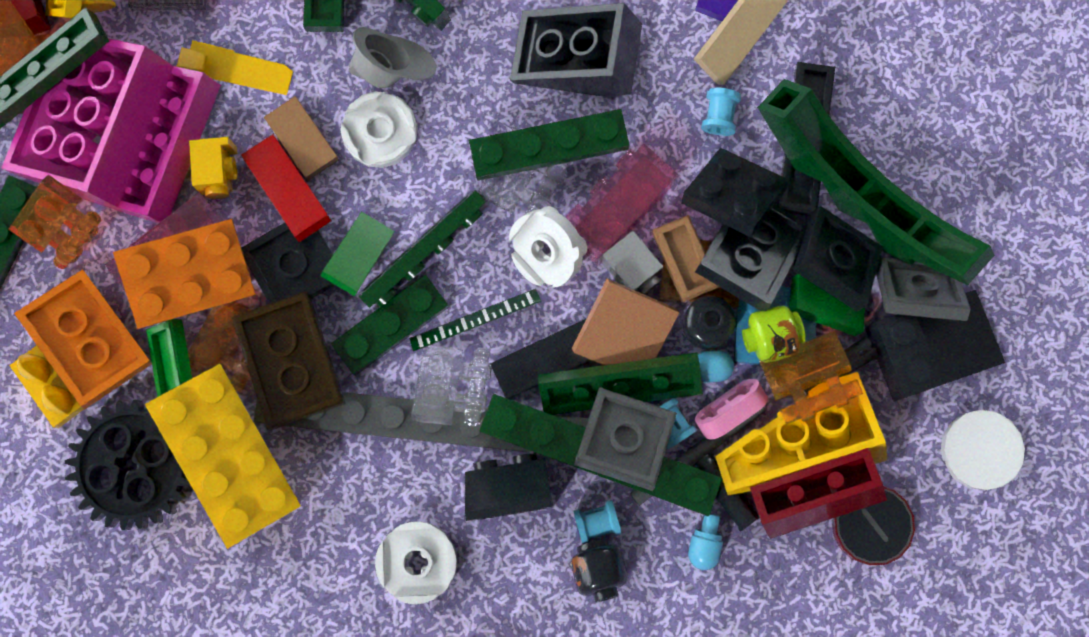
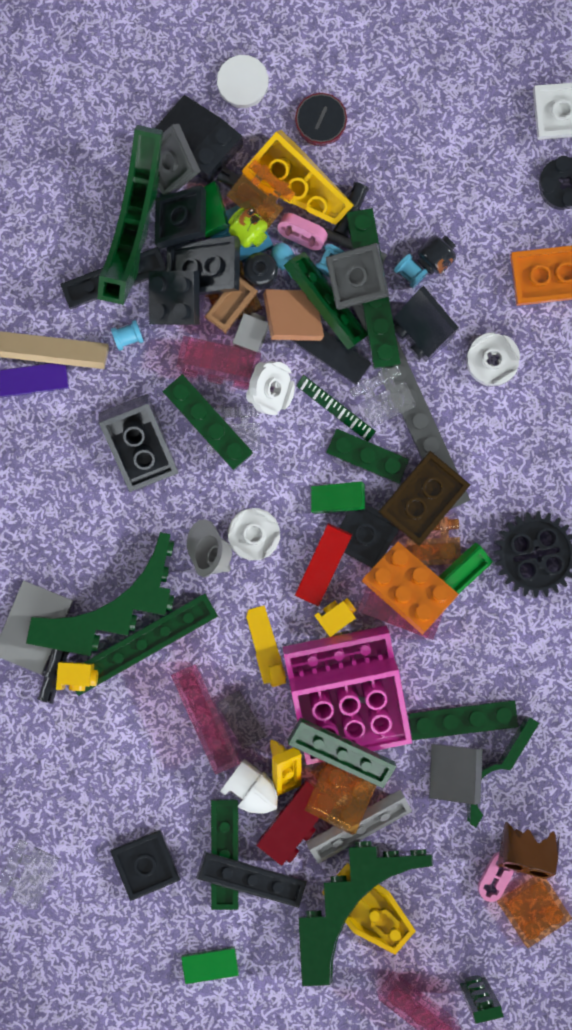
camera: 125 degrees left, 5 degrees up
(44, 216) = (425, 693): clear orange plate -> none
(46, 387) = (519, 634): yellow tile -> none
(83, 339) = (482, 629): orange plate -> none
(223, 455) = (500, 499): yellow brick -> none
(301, 138) = (286, 577): medium nougat tile -> none
(410, 261) = (305, 460): dark green plate -> none
(706, 544) = (387, 204): medium azure cylinder -> none
(818, 493) = (324, 155): dark red brick -> none

